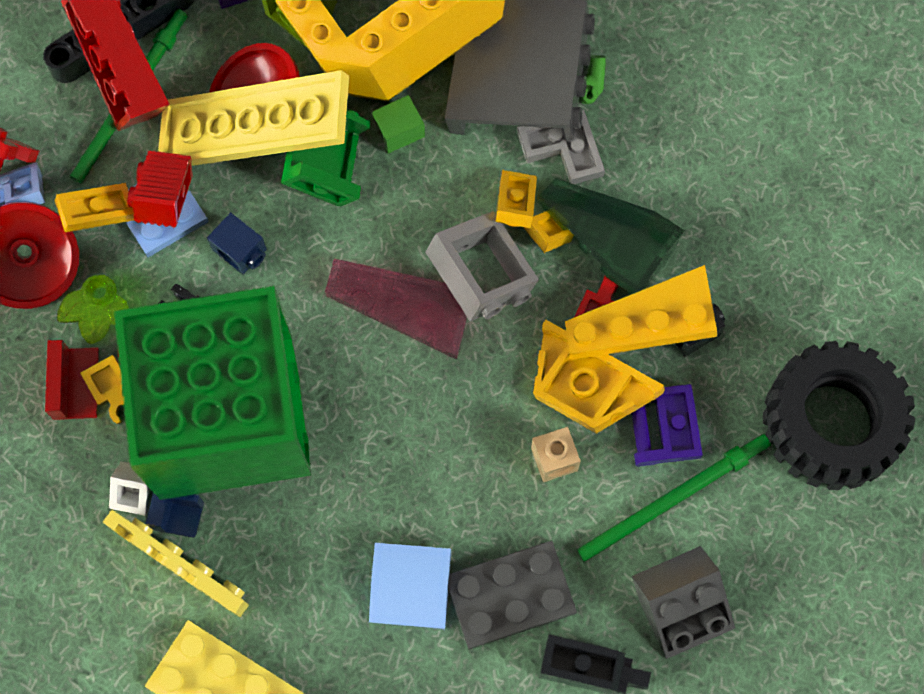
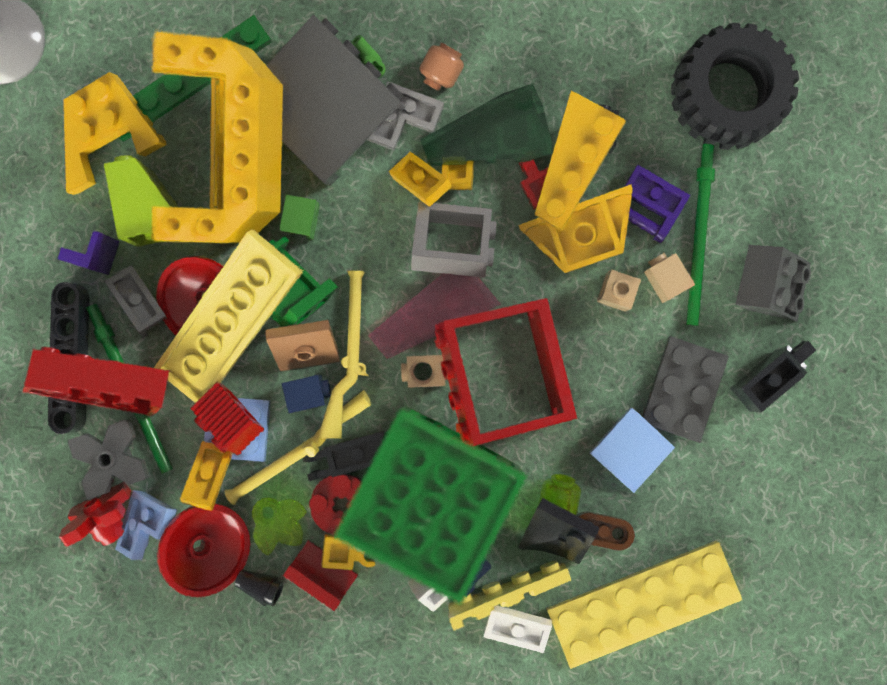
camera: 50 degrees left, 15 degrees up
(22, 335) = (261, 587): none -> black cone
(51, 117) = (98, 454): none -> dark grey plant
(149, 603) = (518, 628): none -> white plate
(184, 279) = (309, 447): none -> light yellow piece
(213, 41) = (135, 300): none -> dark grey panel
(237, 278) = (332, 421): none -> light yellow piece
(272, 567) = (558, 532): none -> black plate
(280, 206) = (303, 345): none -> medium nougat plate
(308, 617) = (607, 525): none -> reddish brown plate
(309, 548) = (562, 492): none -> clear neon green head
(345, 347) = (408, 368): none -> tan brick
(440, 439) = (549, 359): none -> red window
(607, 493) = (668, 276): none -> tan brick
(636, 145) = (441, 66): none -> nougat head

